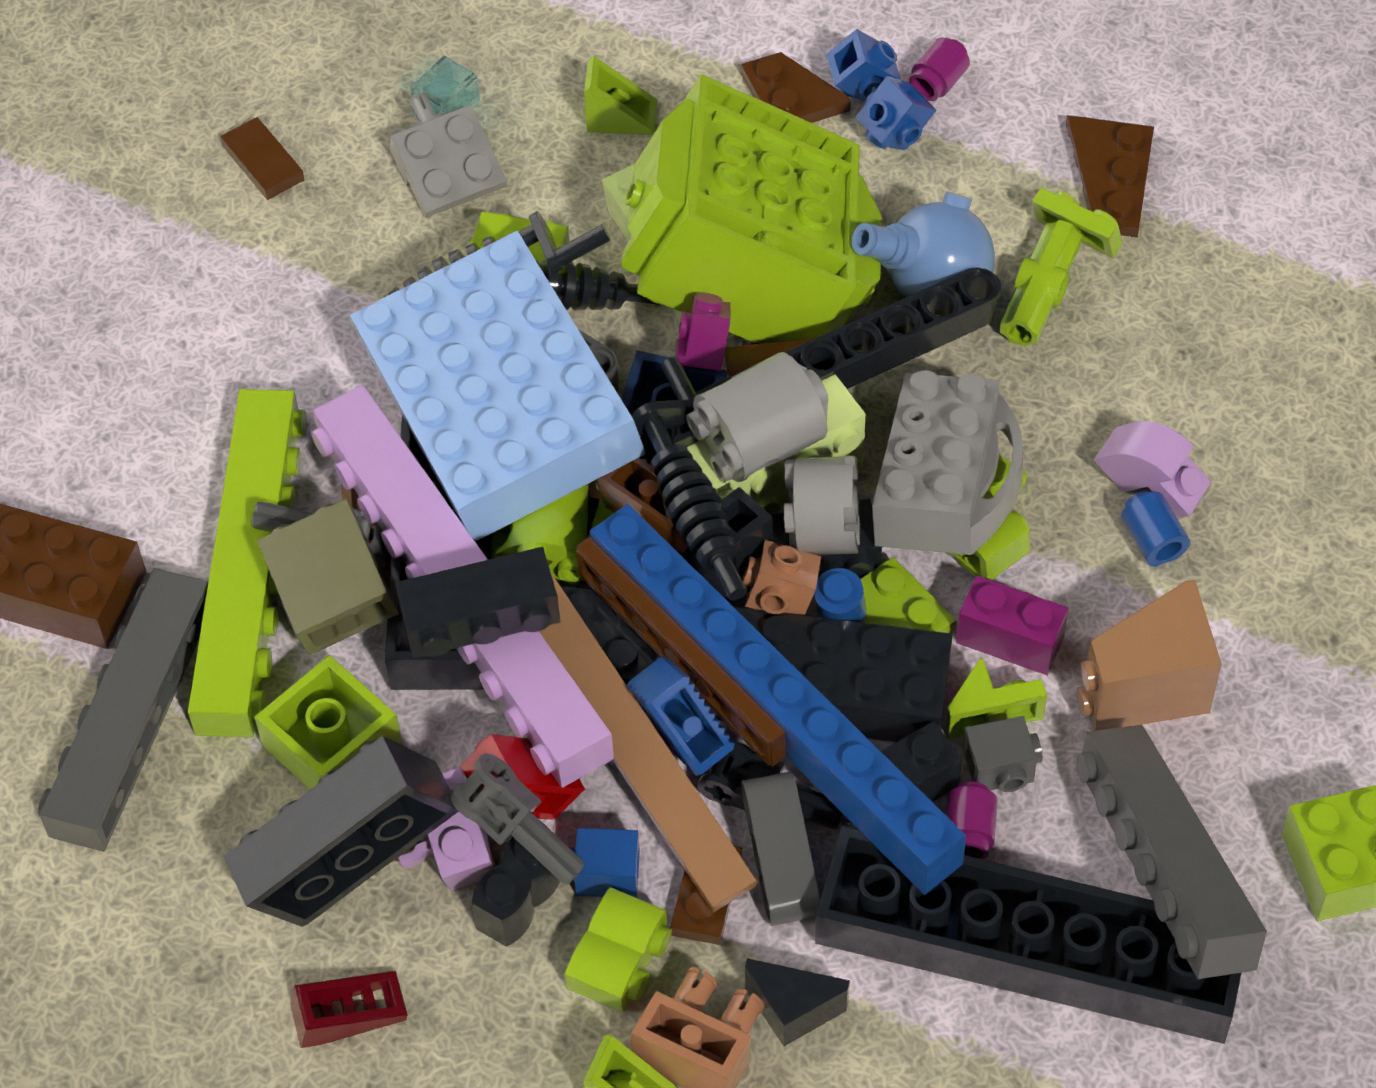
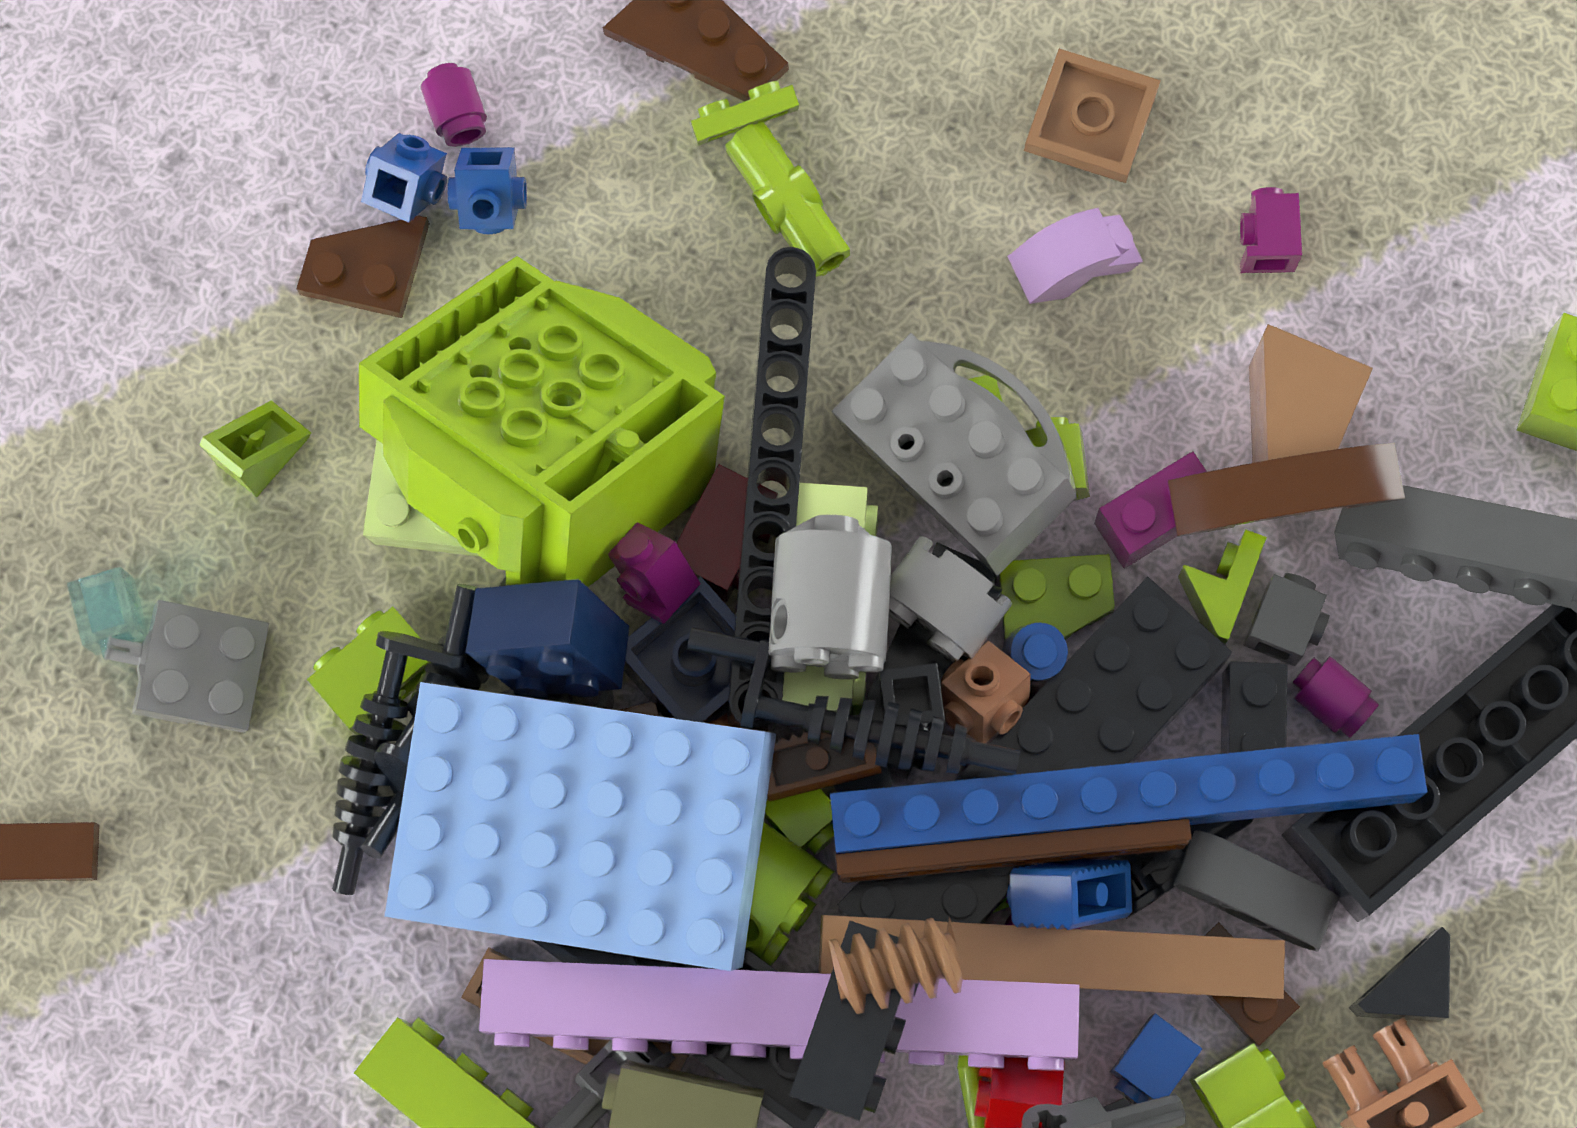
camera: 50 degrees left, 20 degrees up
(529, 577) = (897, 965): none -> medium nougat piece
(609, 296) = (548, 639): none -> dark blue brick
(928, 244) = (703, 281): medium blue piece -> none
(1091, 665) = (1286, 488): none -> reddish brown slope
(1154, 528) = (1137, 303): blue brick -> none
(1267, 421) = (1092, 115): none -> medium nougat plate
(1281, 577) = (1272, 232): none -> magenta brick

